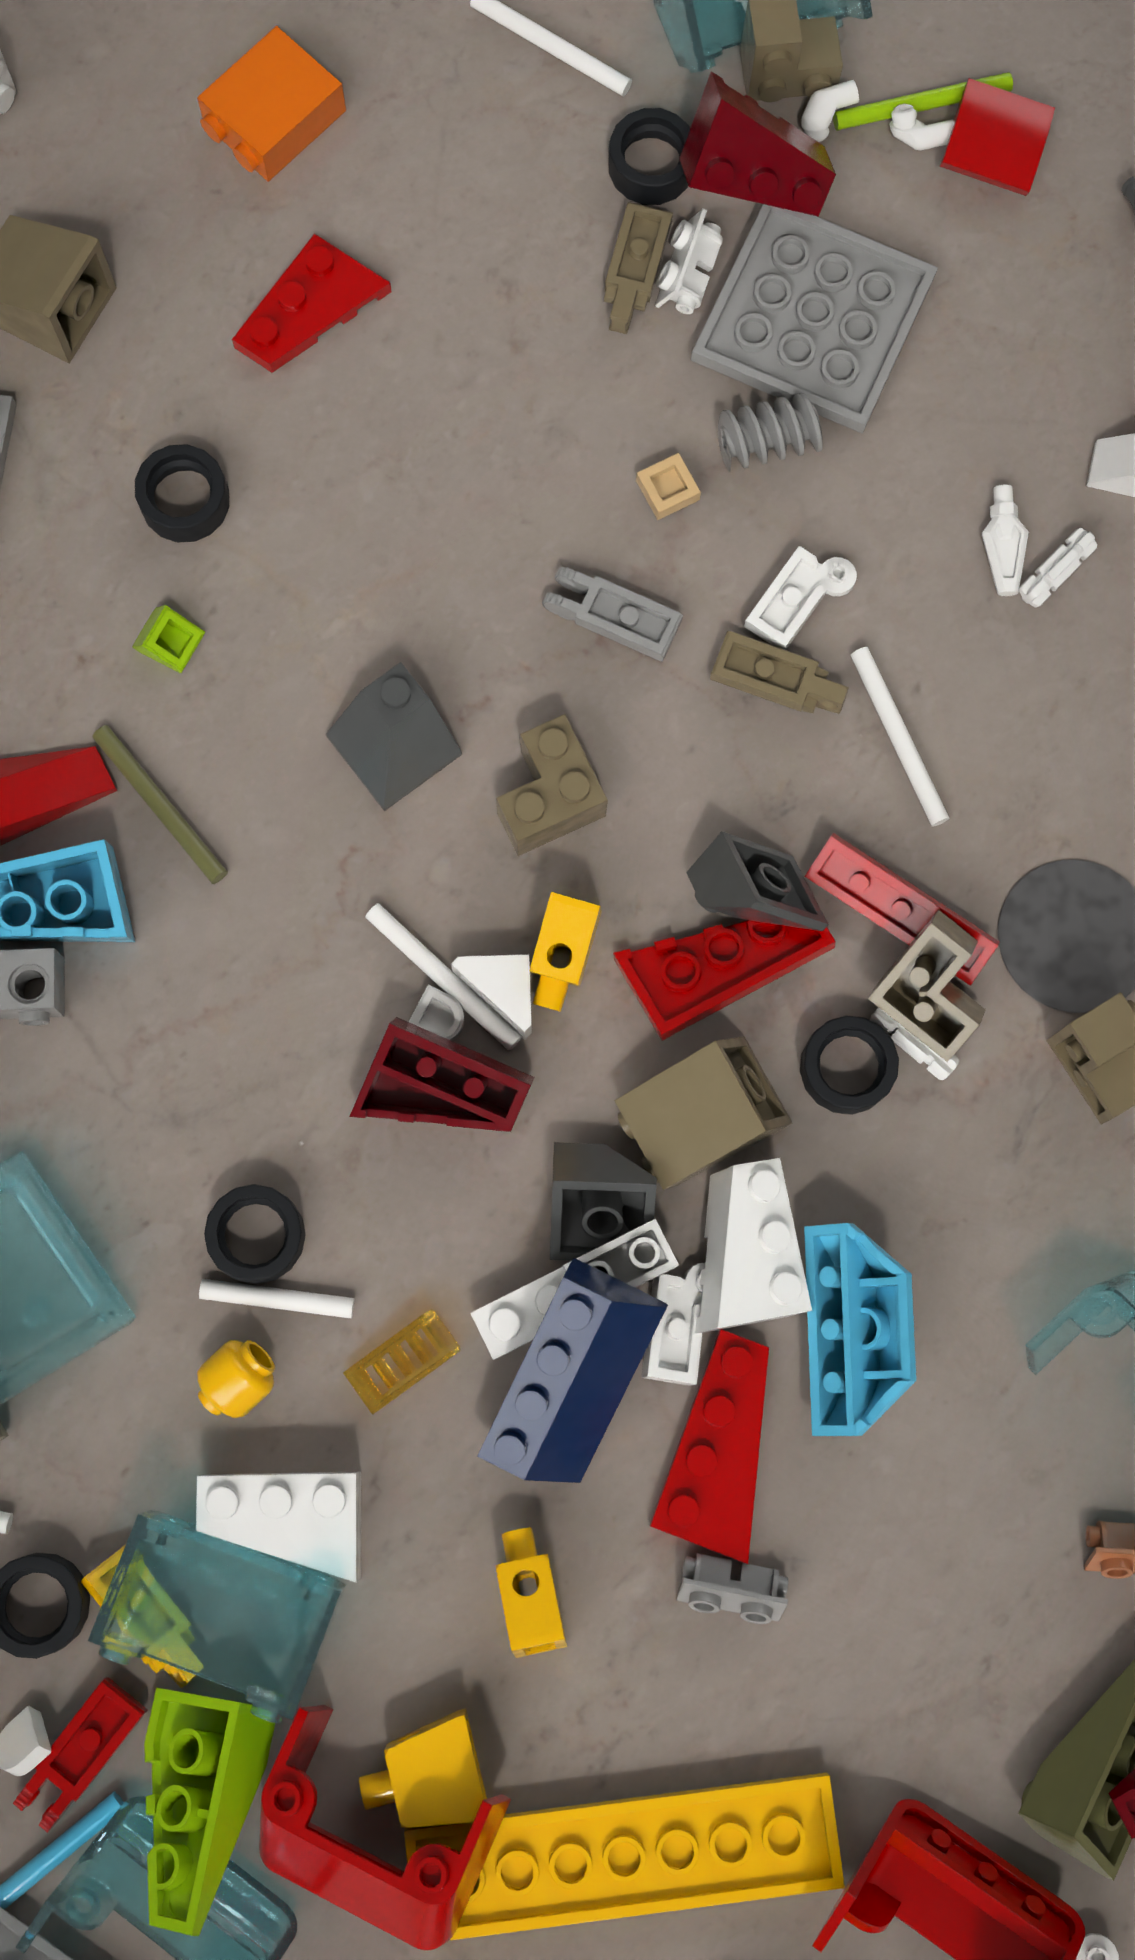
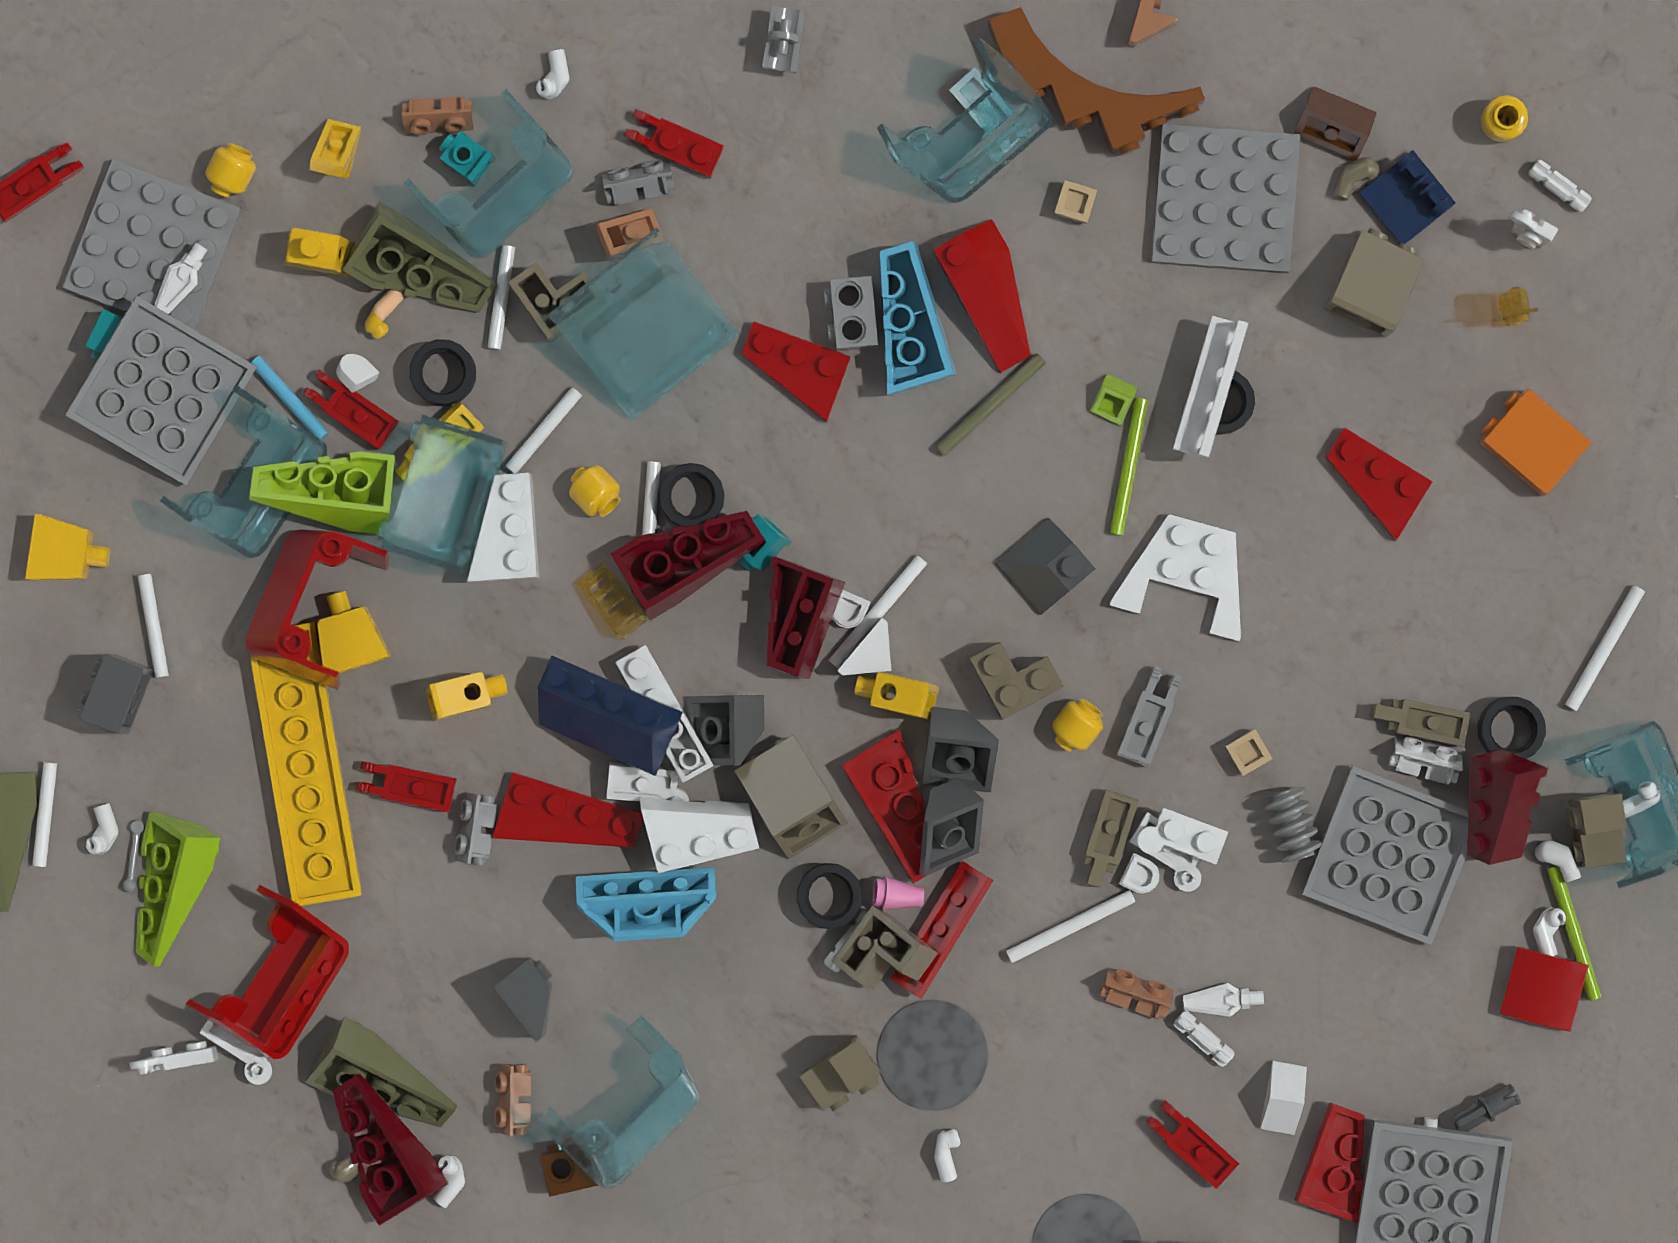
camera: 85 degrees right, 10 degrees up
(77, 1070) = (798, 365): none -> red wing
(86, 107) = (1514, 307): none -> clear yellow hinge
(139, 1452) = (543, 430): none -> white bar
(157, 492) = (1210, 387): none -> white fence
(263, 623) = (1129, 466): none -> lime bar
(314, 1138) = (775, 542): none -> teal brick
(351, 1259) = (678, 562): none -> dark red wedge
(398, 545) = (1193, 559): none -> white wing
(620, 707) = (1077, 725): none -> yellow head
(644, 869) = (960, 749): none -> dark grey slope
(664, 1688) = (411, 786): none -> red hinge
(780, 570) = (1183, 835): none -> white hinge
(830, 640) = (1140, 875): none -> white tile
(849, 973) = (895, 894): none -> bright pink cone
(990, 1522) = (528, 996): none -> dark grey slope
(1000, 631) = (1152, 996): none -> nougat hinge

